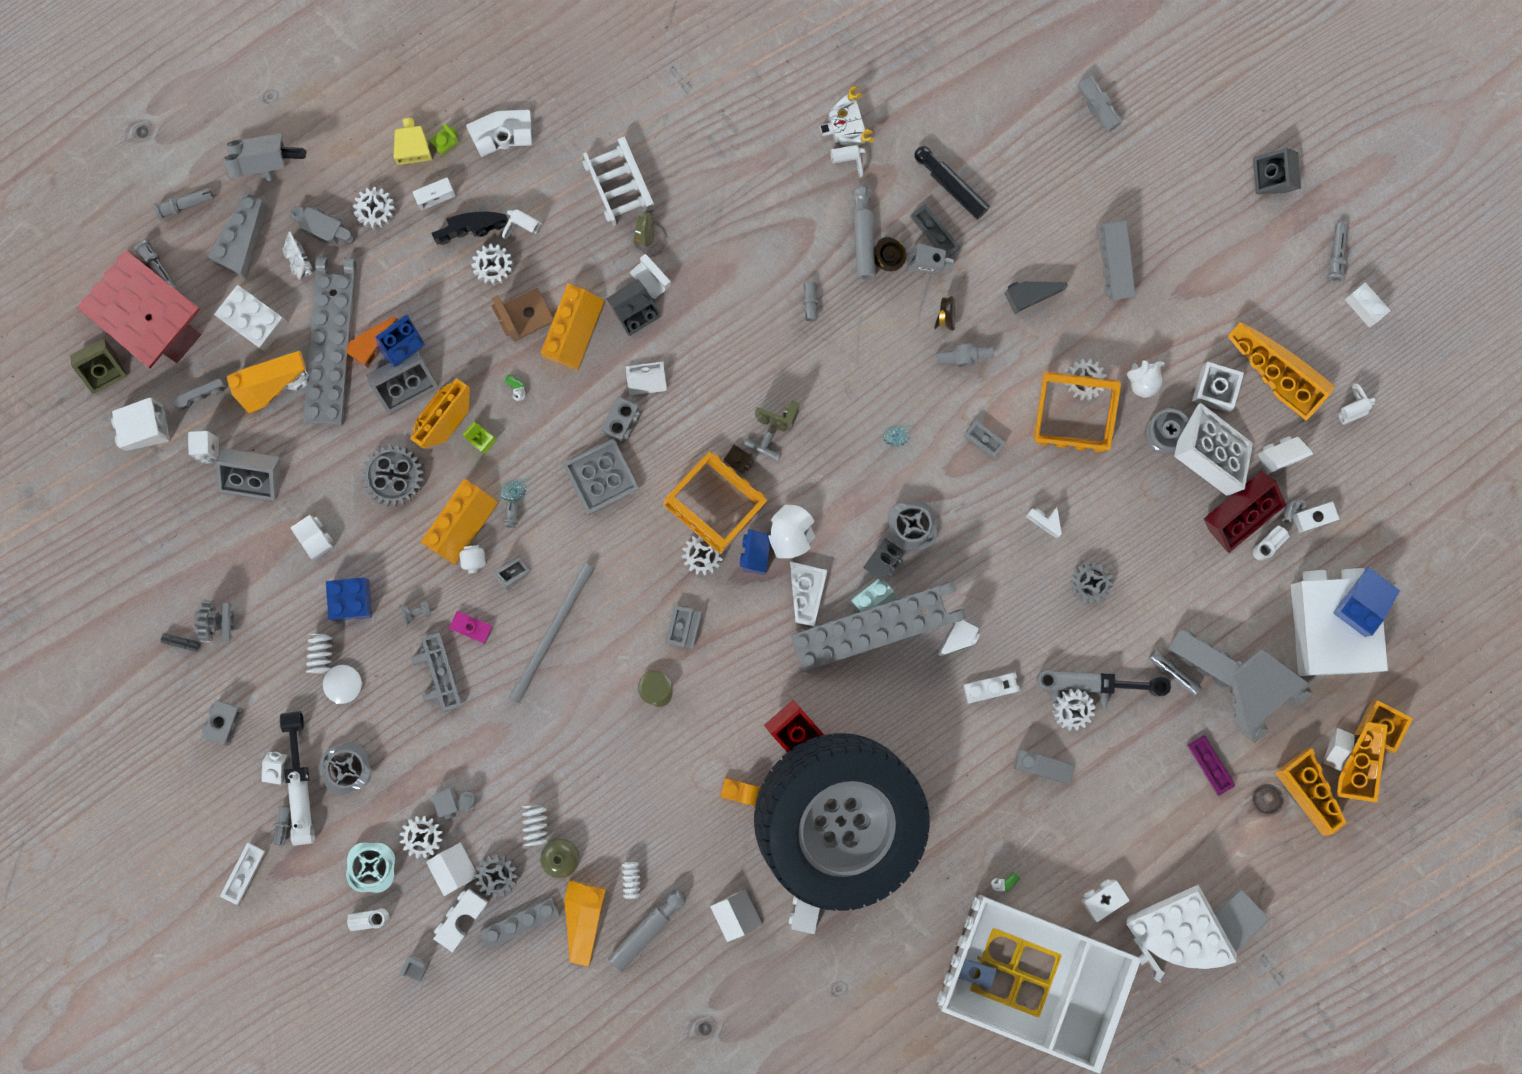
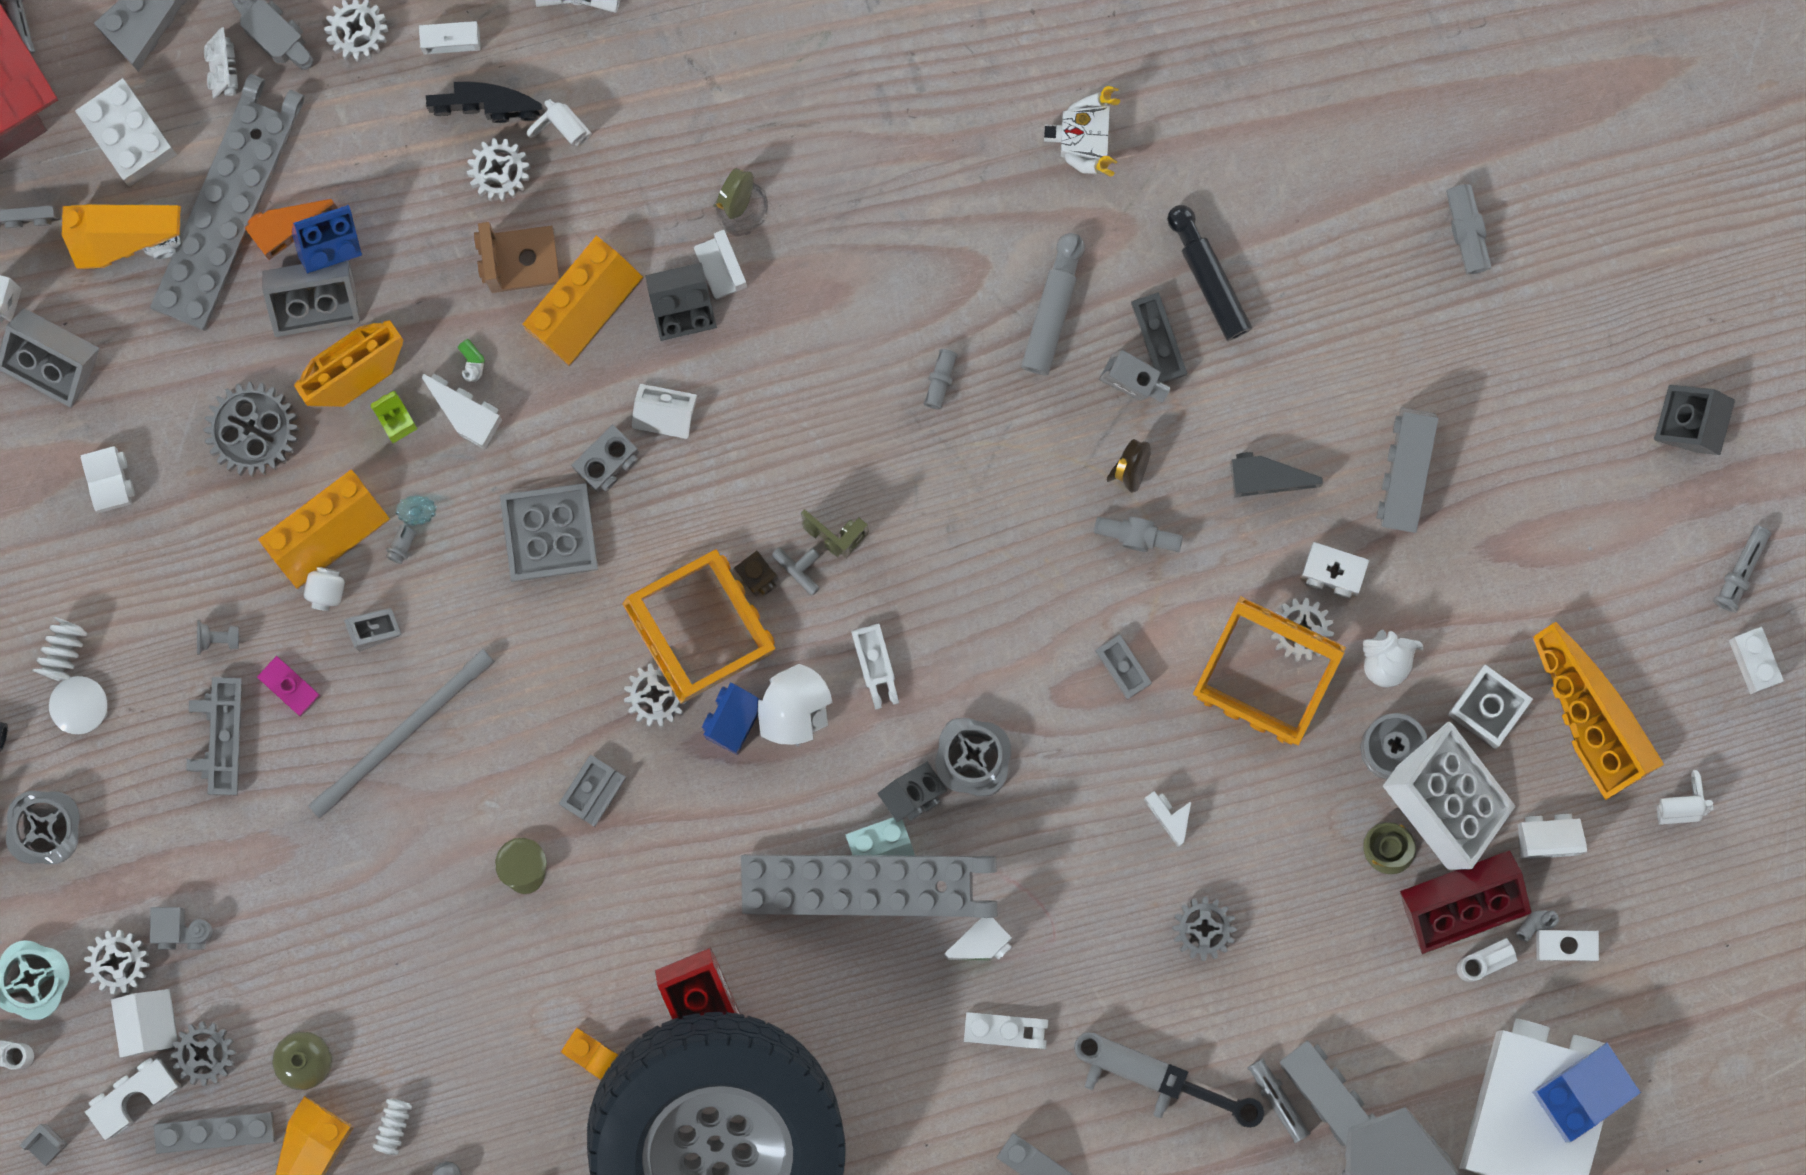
camera: 25 degrees right, 0 degrees up
(348, 599) = (128, 586): blue brick -> none
(527, 423) = (471, 420): none -> white slope
(535, 825) = (282, 1001): white piece -> none
(636, 183) = (747, 121): white fence -> none
(807, 592) = (788, 800): white wing -> none
(831, 488) = (874, 662): none -> white hinge
(847, 154) = (1071, 181): white piece -> none
(889, 254) = (1081, 348): dark brown piece -> none
(896, 436) = (996, 619): clear light blue piece -> none
(1075, 701) = (1115, 1091): white gear -> none
(1101, 331) = (1323, 558): none -> white brick
(1186, 494) = (1389, 848): none -> olive piece

